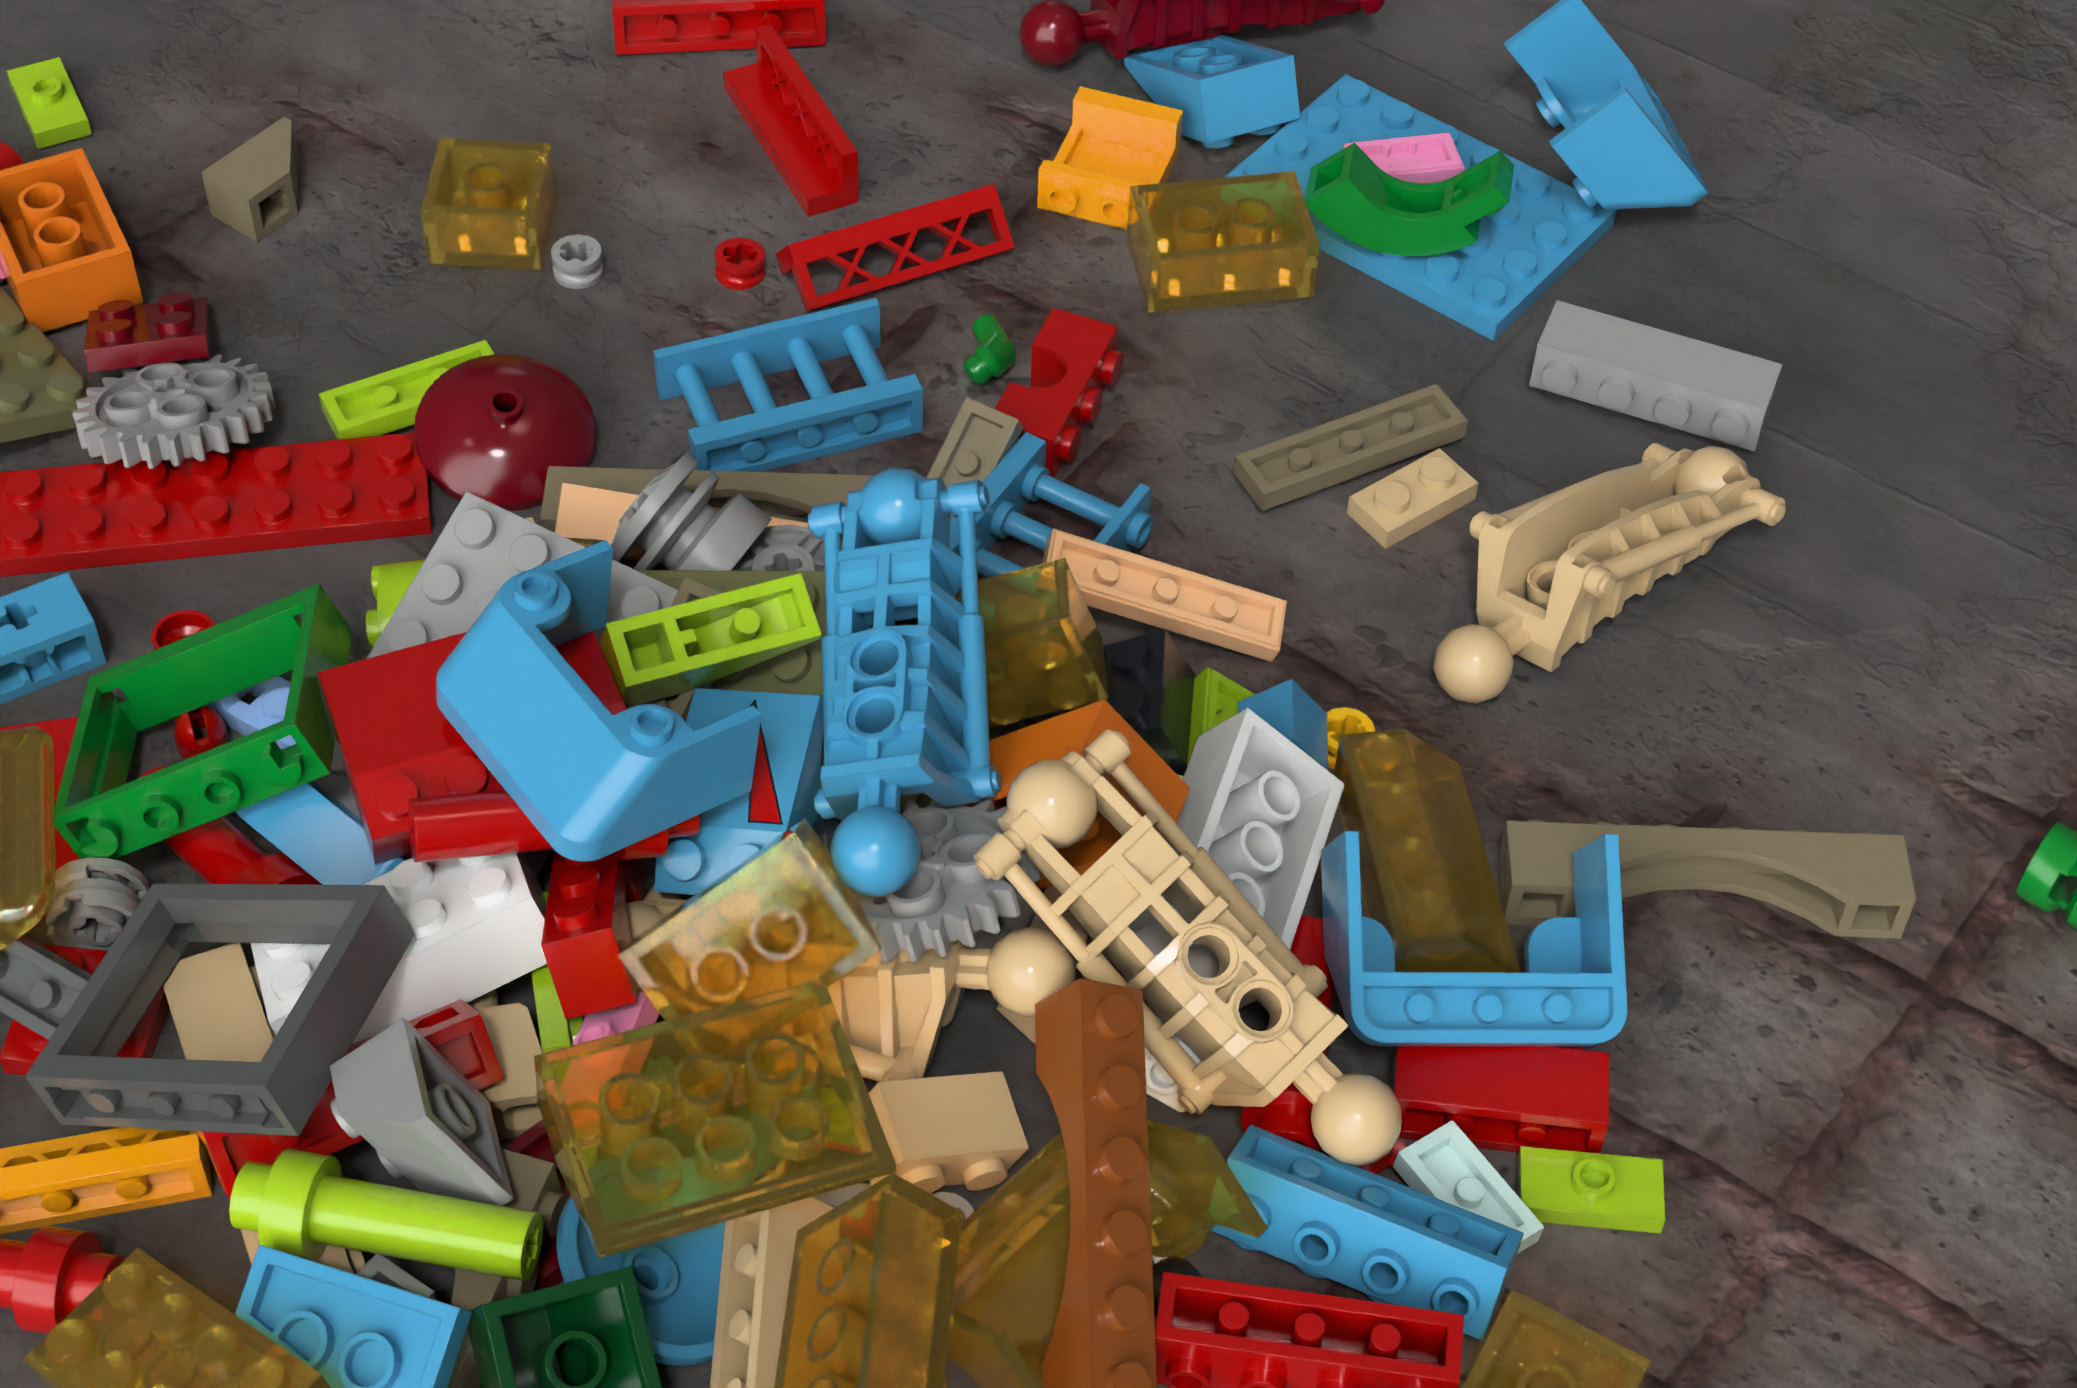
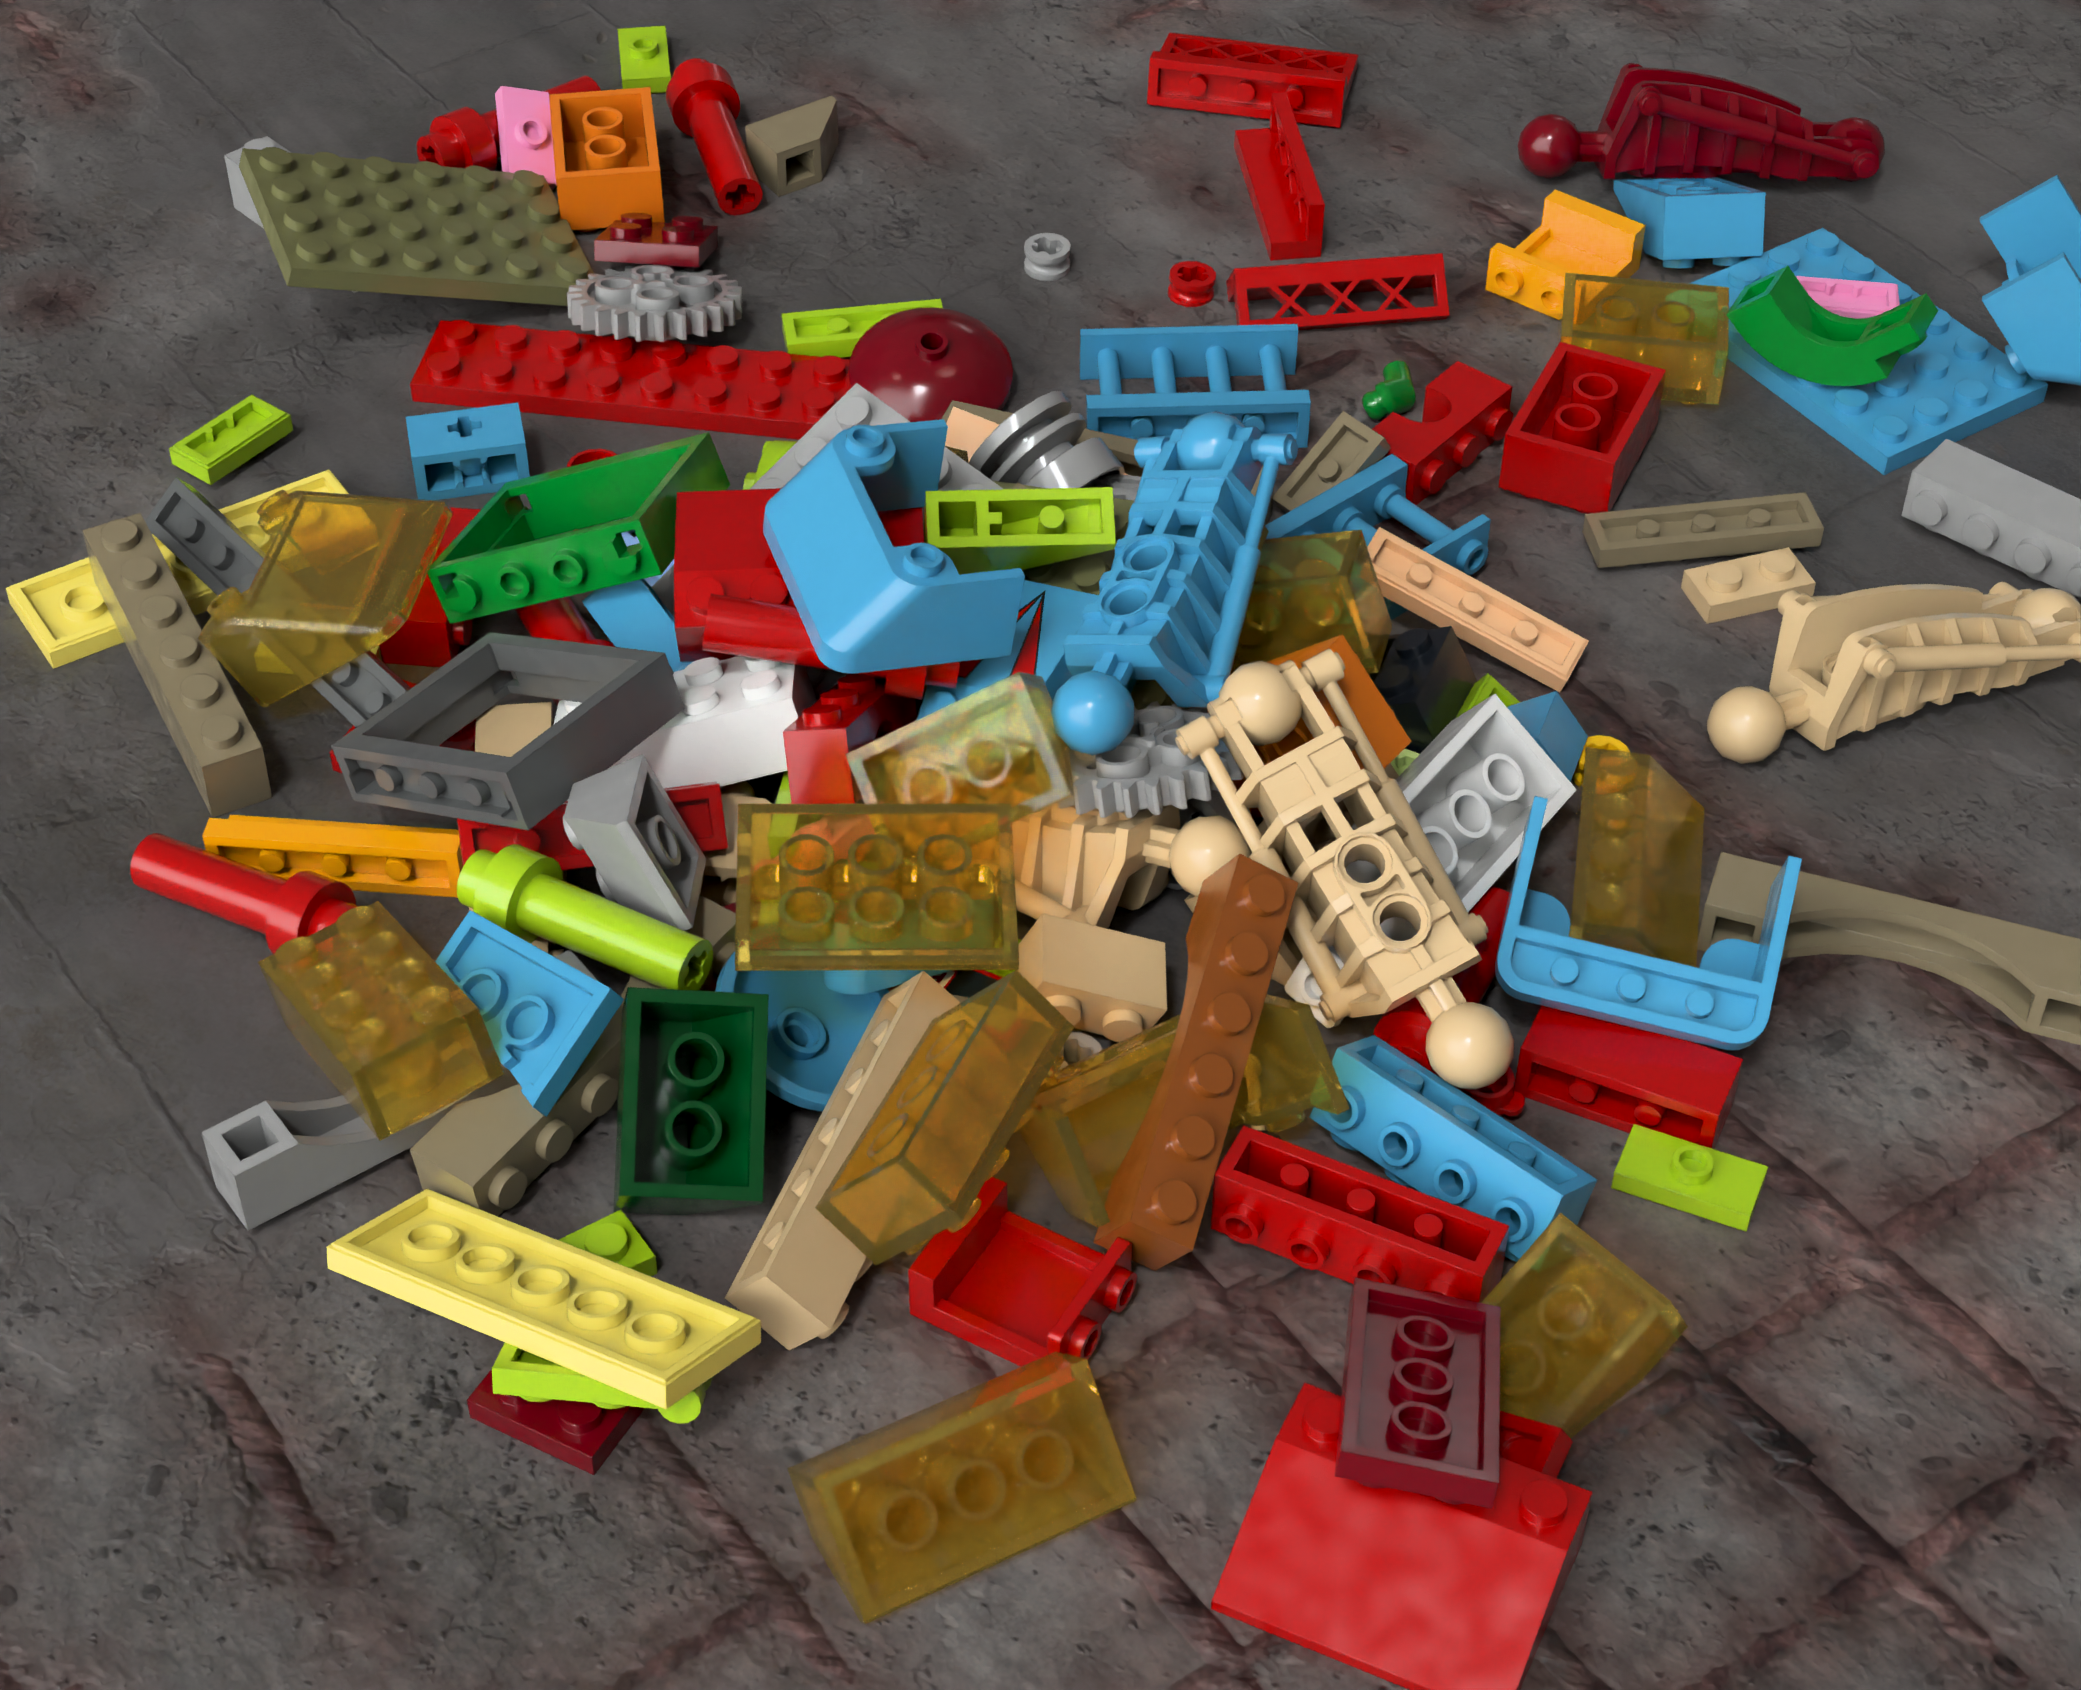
camera: 20 degrees right, 5 degrees down
(93, 902) = (438, 641): light grey wheel -> none
(145, 153) = (706, 108): none -> red piece
(489, 203) = (983, 193): clear yellow brick -> none
(1200, 360) = (1581, 429): none -> red brick
(1456, 1172) = (1564, 1125): light aqua plate -> none

